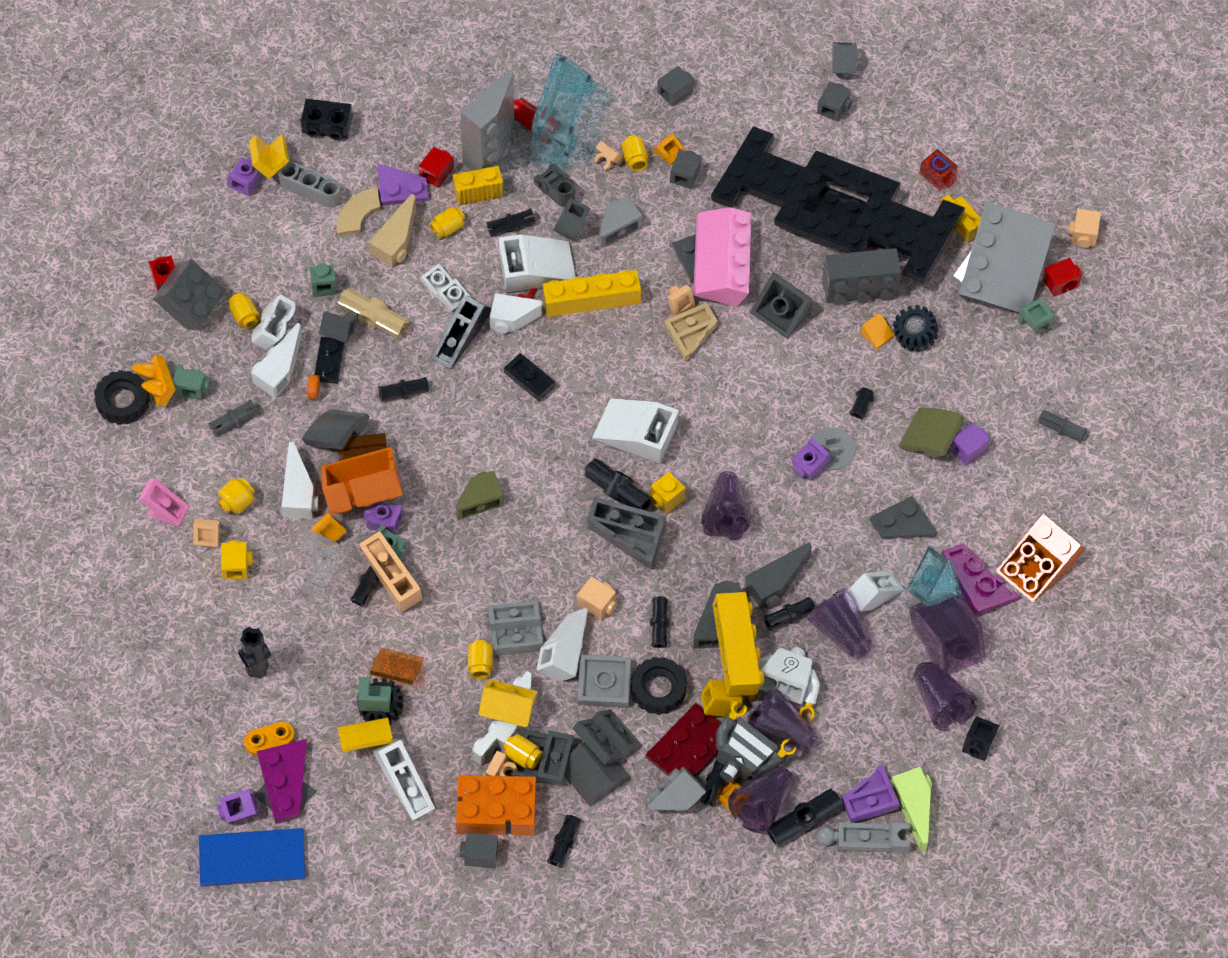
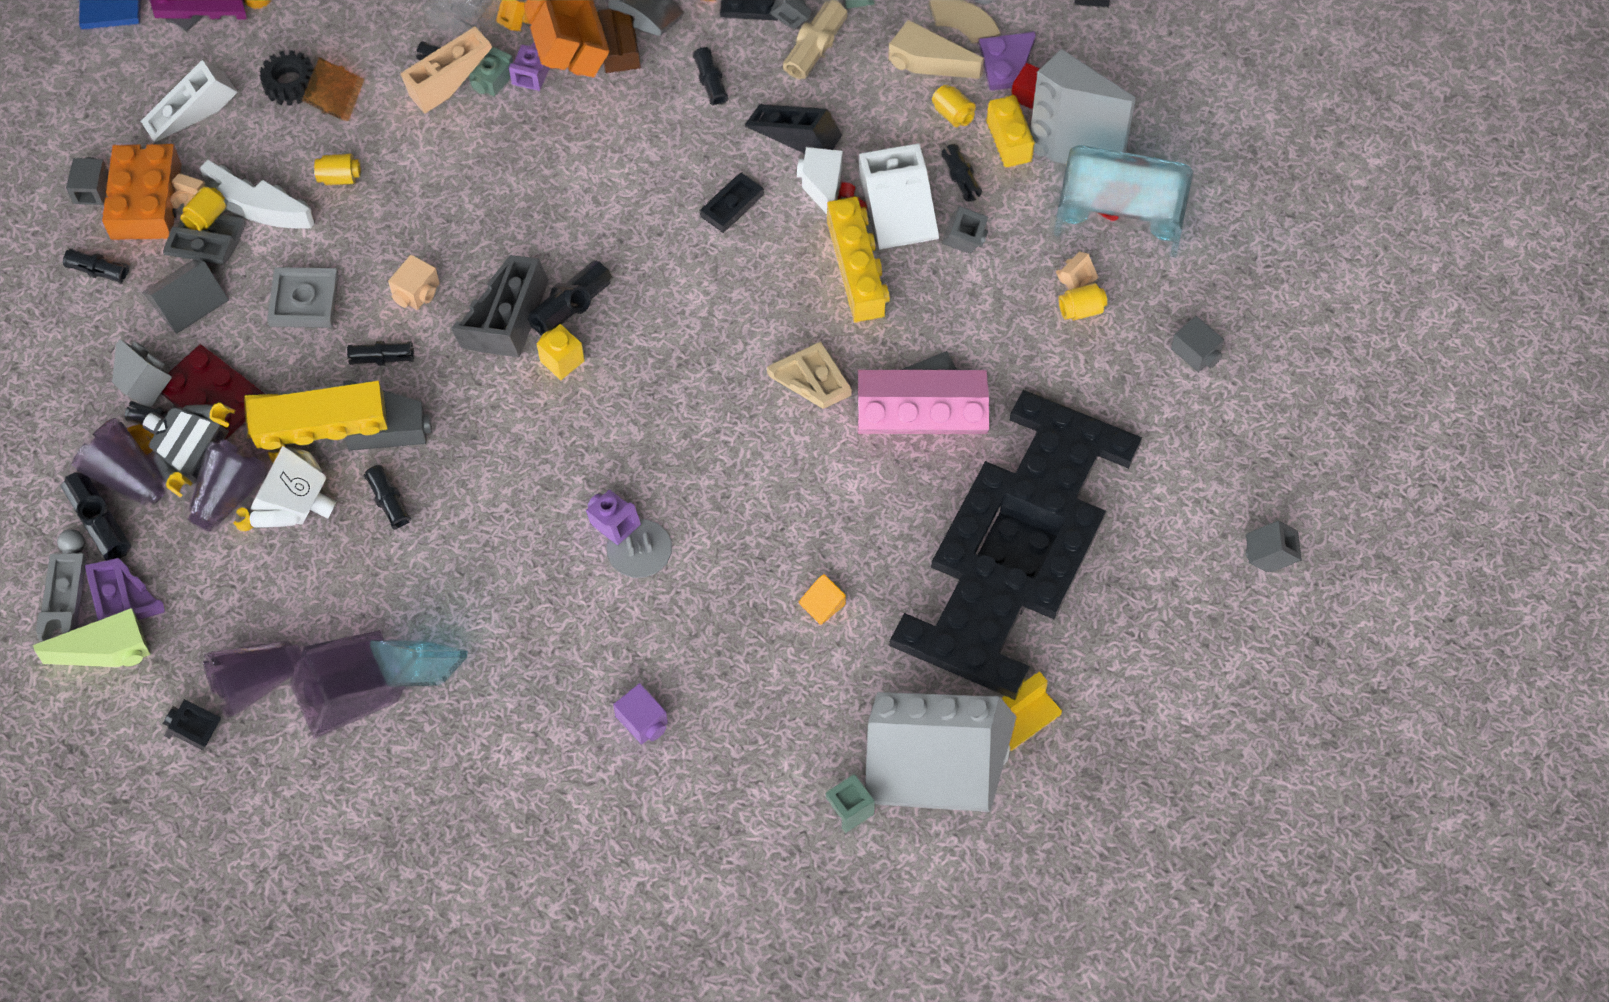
camera: 90 degrees right, 0 degrees up
(365, 735) = (237, 60): yellow panel -> none
(373, 697) = (281, 57): sand green panel -> none
(444, 287) = (862, 111): white slope -> none
(480, 495) = (560, 157): olive slope -> none
(507, 702) = (264, 184): yellow panel -> none
(514, 618) = (397, 206): light grey slope -> none
(554, 184) = (1021, 218): dark grey piece -> none
(561, 651) = (340, 245): white slope -> none
(607, 737) = (223, 300): dark grey slope -> none
(619, 220) = (971, 285): light grey slope -> none
(638, 427) = (655, 319): white slope -> none
(665, 668) = (284, 333): black tyre -> none
(668, 148) = (1098, 346): light orange slope -> none
(680, 299) = (853, 358): light nougat tile -> none
(685, 168) = (1064, 360): dark grey brick -> none
(726, 508) = (540, 415): clear purple cone -> none
(773, 580) = (435, 479): dark grey slope -> none
(782, 306) = (852, 479): dark grey slope -> none
(834, 101) = (1200, 539): dark grey brick -> none
(842, 623) = (360, 552): clear purple cone -> none
(861, 276) = (896, 565): dark grey piece -> none
(862, 402) = (705, 580): black pin -> none
(874, 589) = (416, 596): white slope -> none
(903, 521) = (524, 634): dark grey wing -> none
(915, 328) = (825, 644): black wheel -> none
(931, 431) = (656, 662): olive slope -> none
(938, 170) = (1097, 676): clear red brick -> none
(977, 584) = (428, 723): magenta wing -> none
(1040, 558) = (463, 809): slope -> none
(1062, 276) = (926, 843): red brick -> none
(1062, 425) = (677, 842): dark grey axle -> none
(1085, 228) = (1015, 878): light nougat brick -> none

